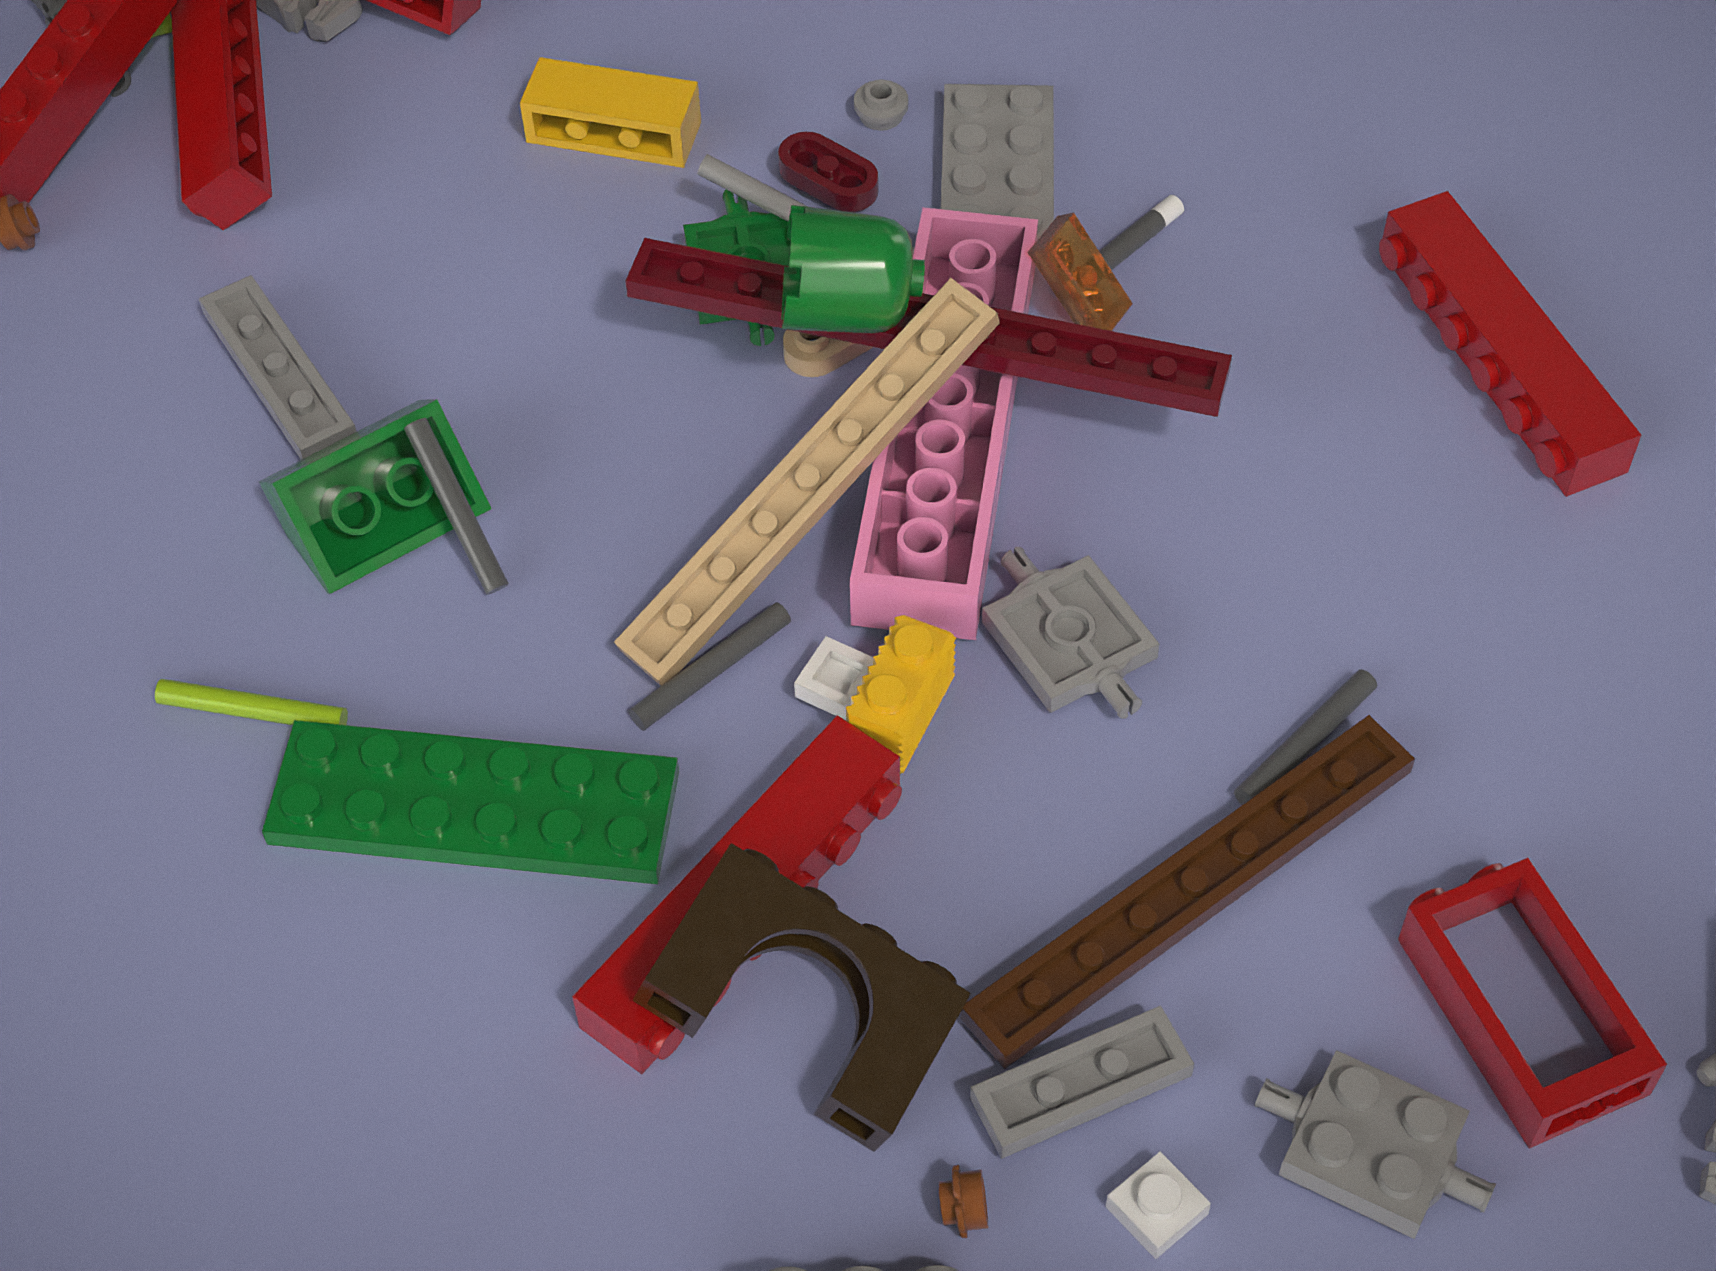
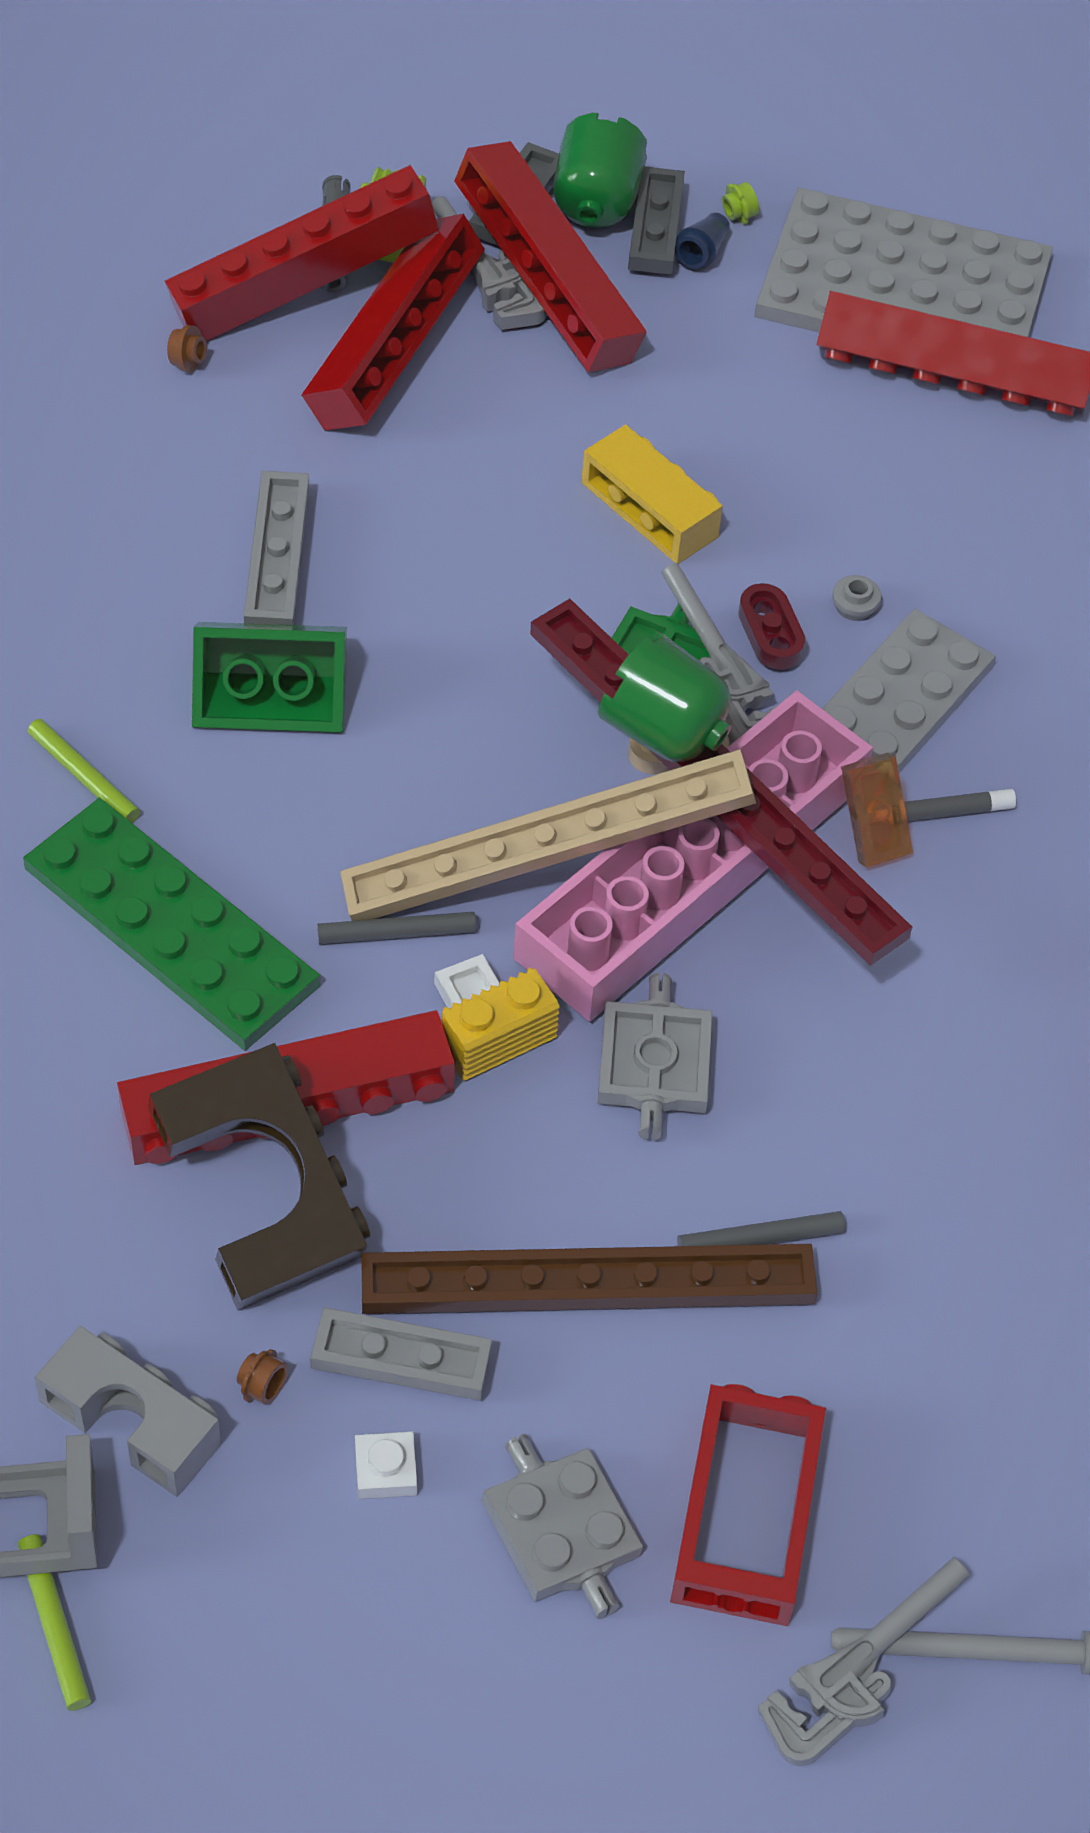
camera: 30 degrees right, 0 degrees up
(456, 506) = (308, 714): dark grey bar -> none

